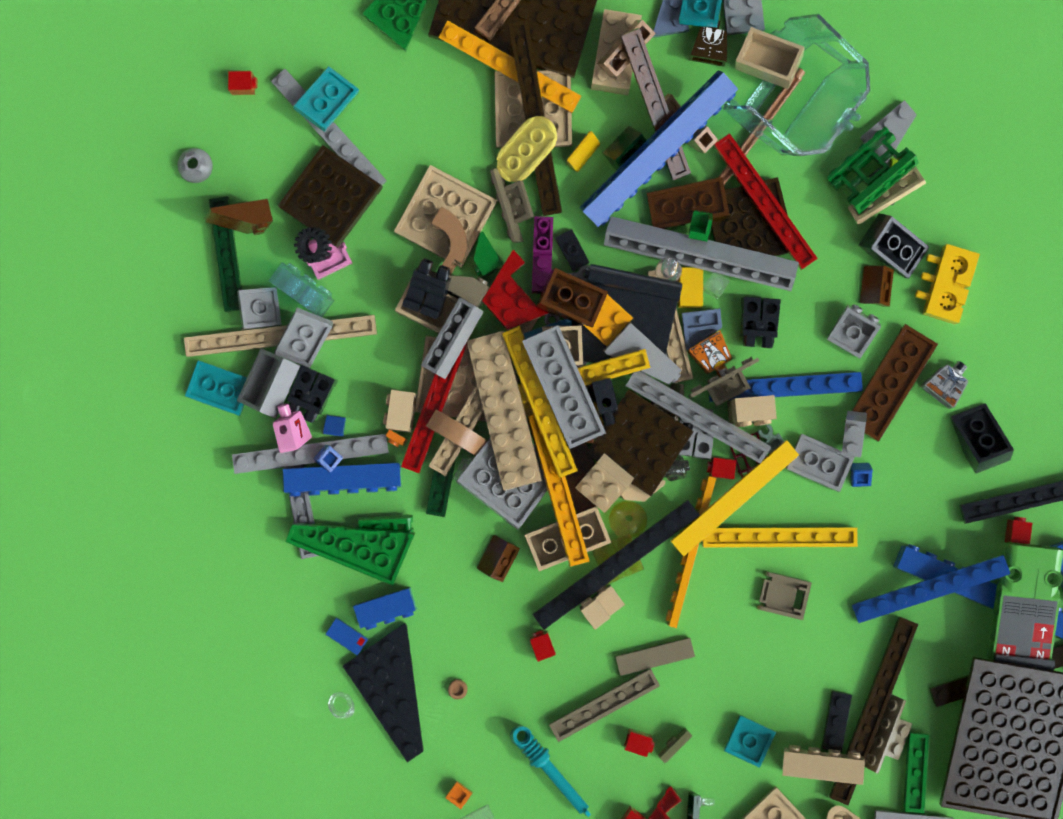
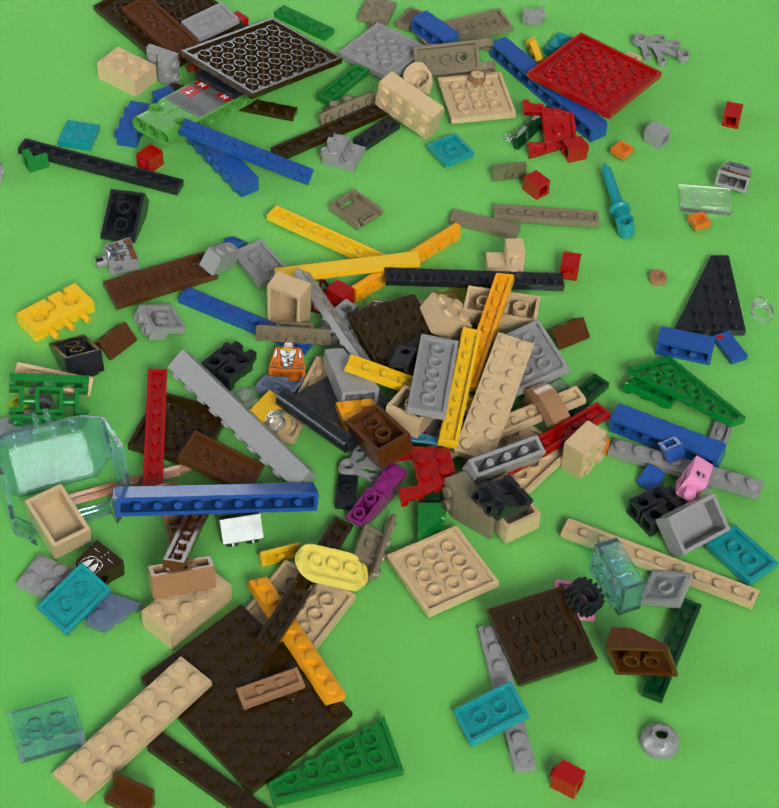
camera: 150 degrees left, 40 degrees down
(303, 337) = (638, 537): light grey plate -> none
(452, 227) = (448, 532): medium nougat arch -> none
(700, 225) = (225, 434): green panel -> none
(848, 667) = (342, 153): none -> light grey plate

